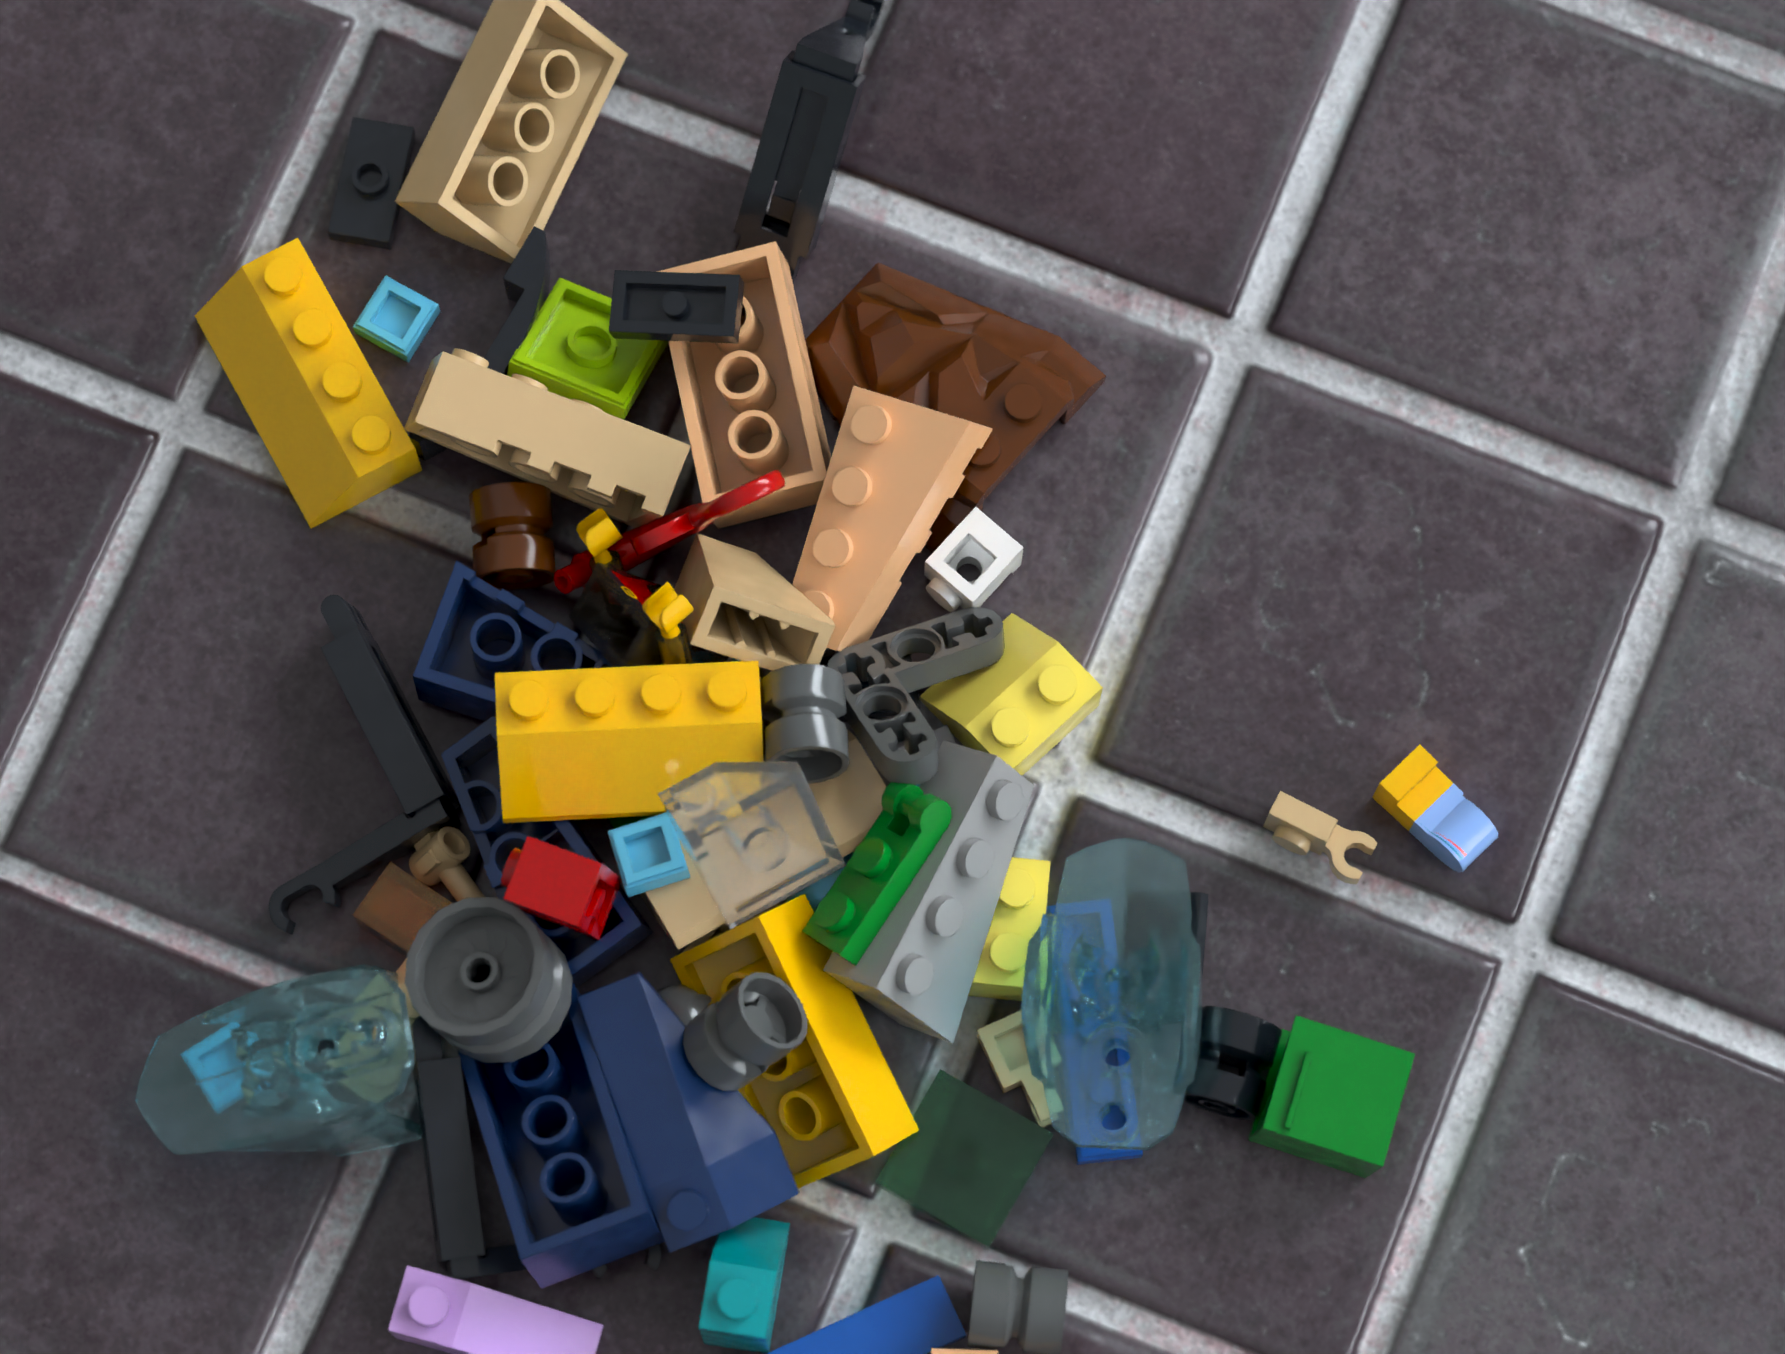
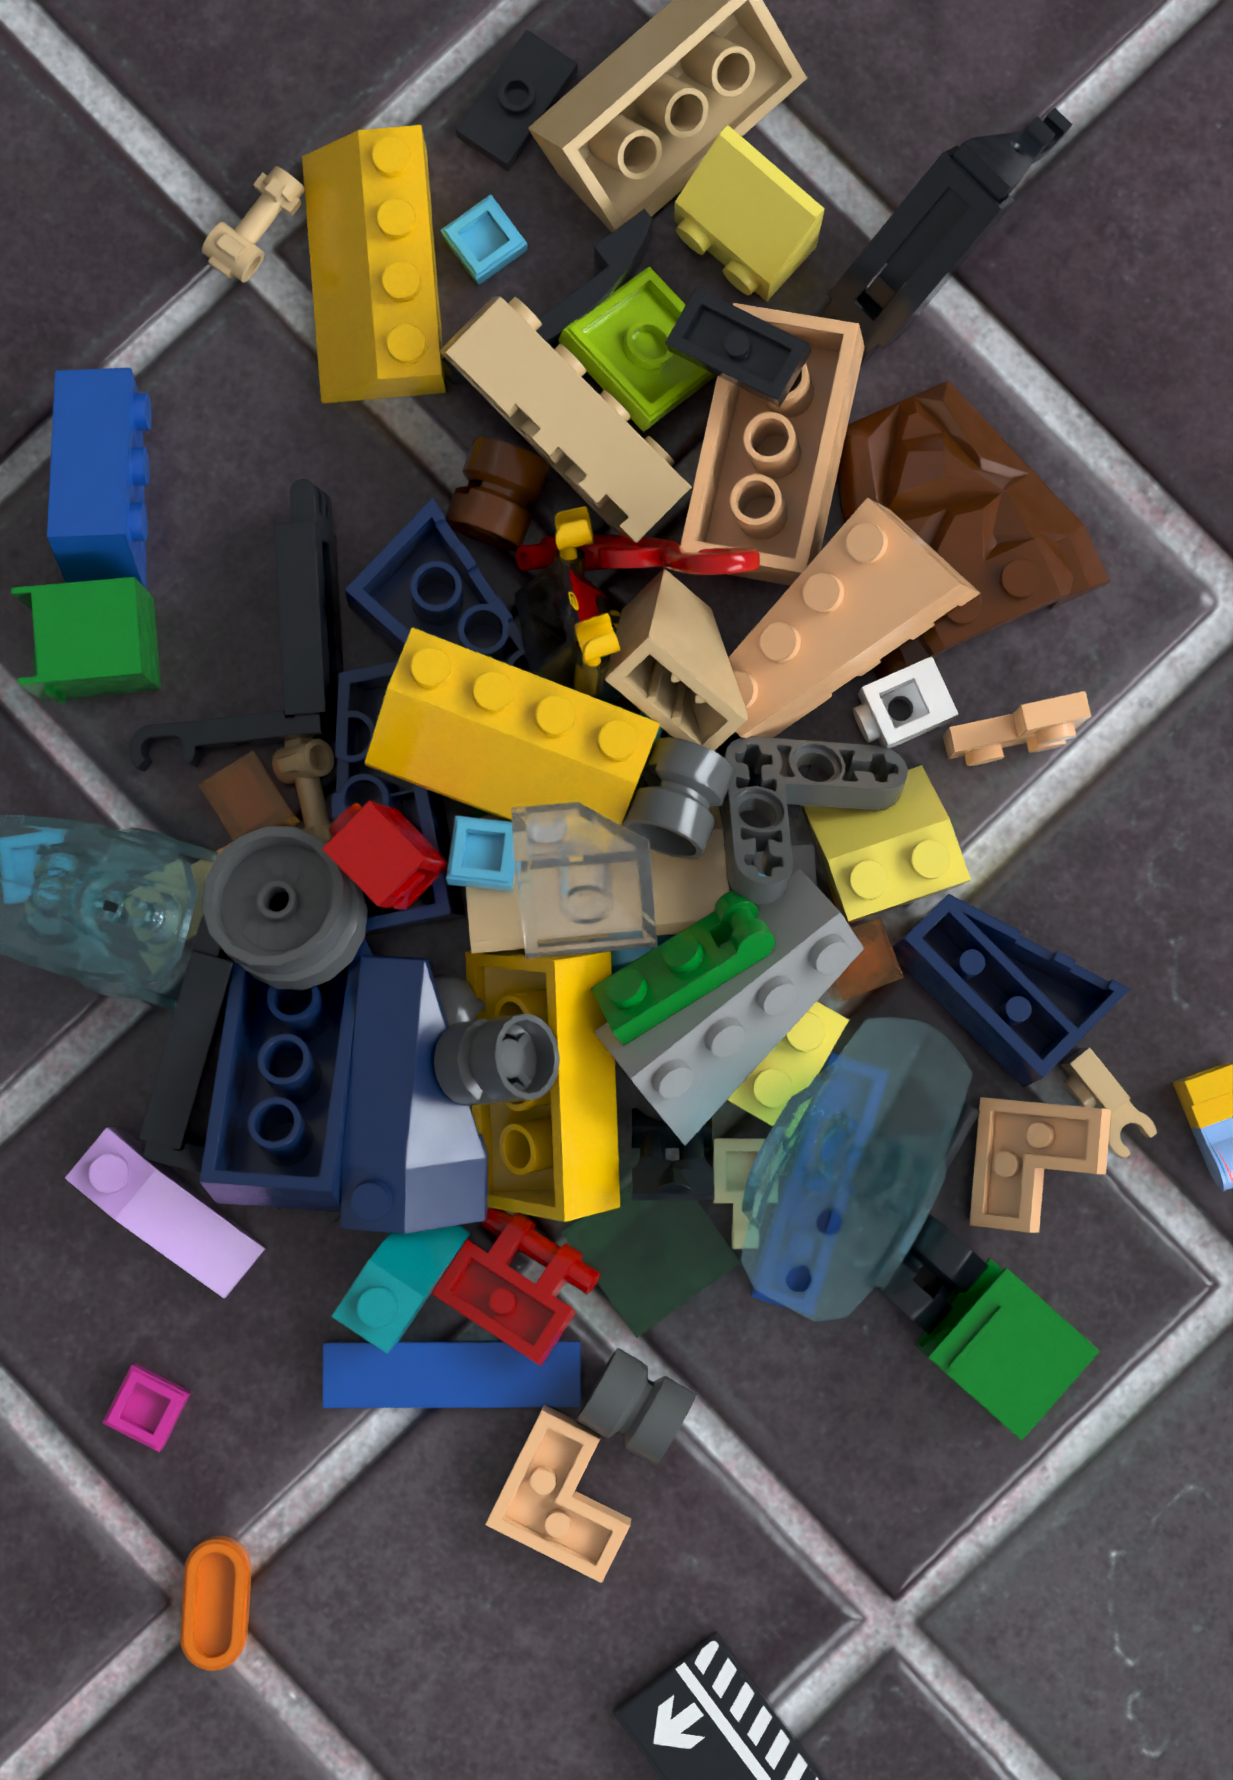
camera: 30 degrees right, 10 degrees up
(138, 685) = (99, 475): none -> blue wedge
(171, 424) = (234, 250): none -> tan bar
(189, 829) = (91, 639): none -> green piece
(631, 193) = (747, 216): none -> light yellow slope
(854, 1265) = (505, 1301): none -> red plate
(941, 1084) = (665, 1179): none -> black piece
(1049, 812) = (872, 967): none -> clear orange brick
(1097, 526) = (1039, 724): none -> light nougat plate
(1175, 772) = (1005, 988): none -> dark blue wedge
(1257, 911) = (1016, 1146): none -> light nougat plate

